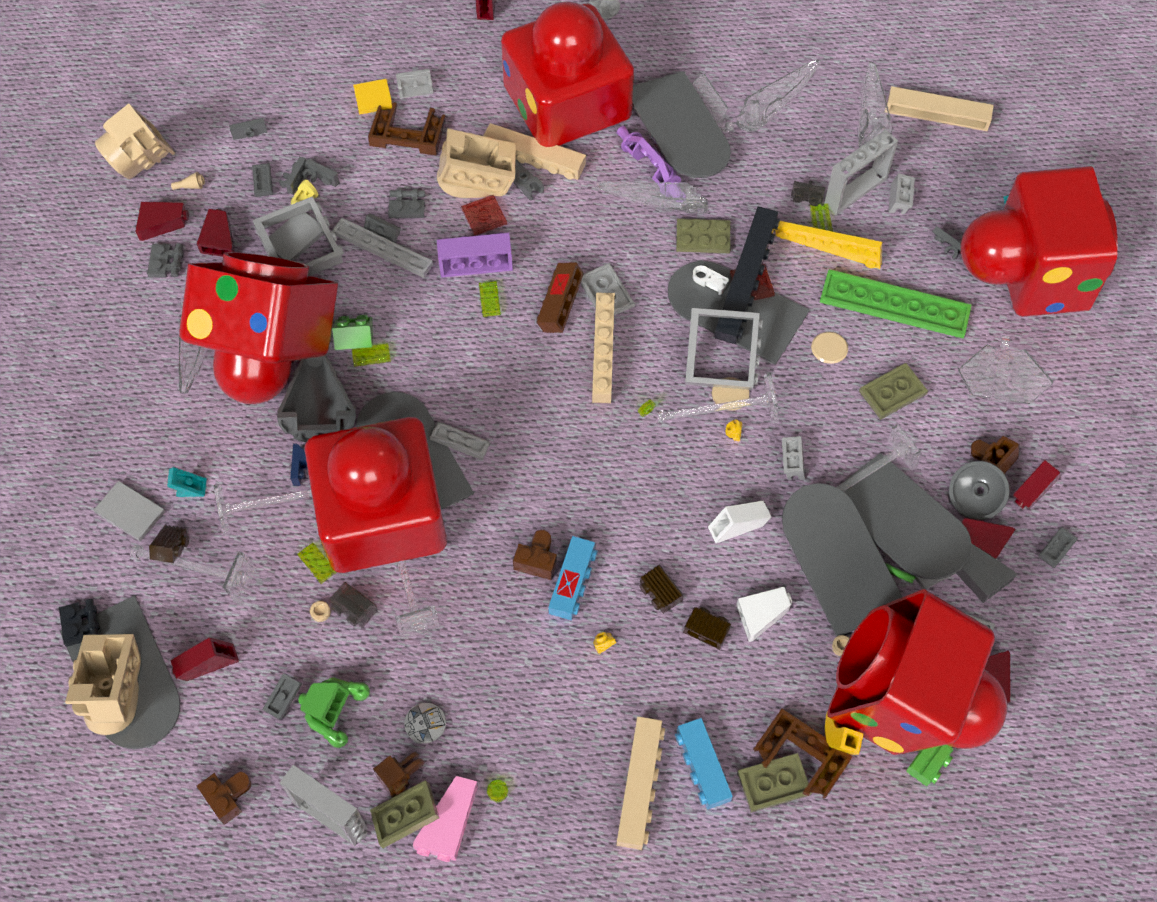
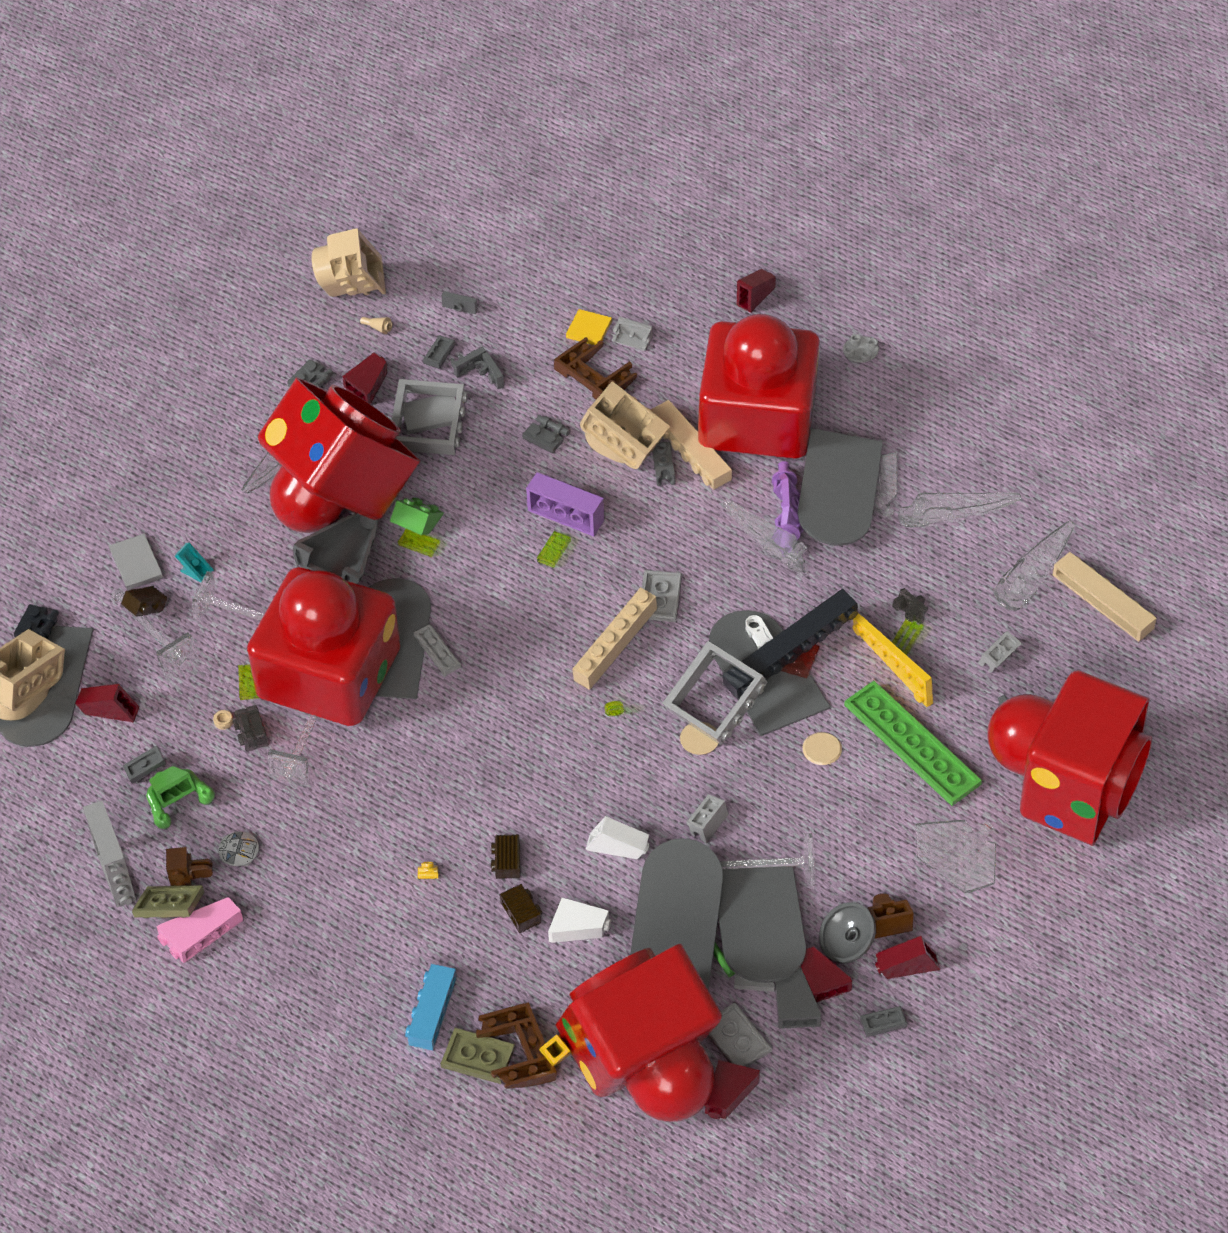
camera: 35 degrees right, 10 degrees down
(160, 218) = (330, 341): dark red slope -> none
(223, 796) = (47, 809): reddish brown brick -> none
(304, 191) = (468, 379): light yellow tile -> none
(382, 227) = (506, 443): dark grey plate -> none
(383, 247) = (496, 459): light grey plate -> none
(484, 215) = (605, 477): clear red tile -> none
(497, 791) = (254, 931): clear neon green tile -> none
(536, 558) = (424, 774): reddish brown brick -> none
(560, 297) = (612, 578): reddish brown brick -> none
(572, 578) = (440, 806): dark azure brick -> none
(639, 783) = (368, 990): tan brick -> none
(703, 236) = (785, 594): olive plate -> none
(733, 430) = (677, 768): yellow plate -> none
(768, 398) = (722, 757): clear tile -> none
(879, 149) = (965, 626): light grey window -> none
(893, 391) = (845, 813): olive plate -> none
(928, 763) = (619, 1117): bright green brick -> none

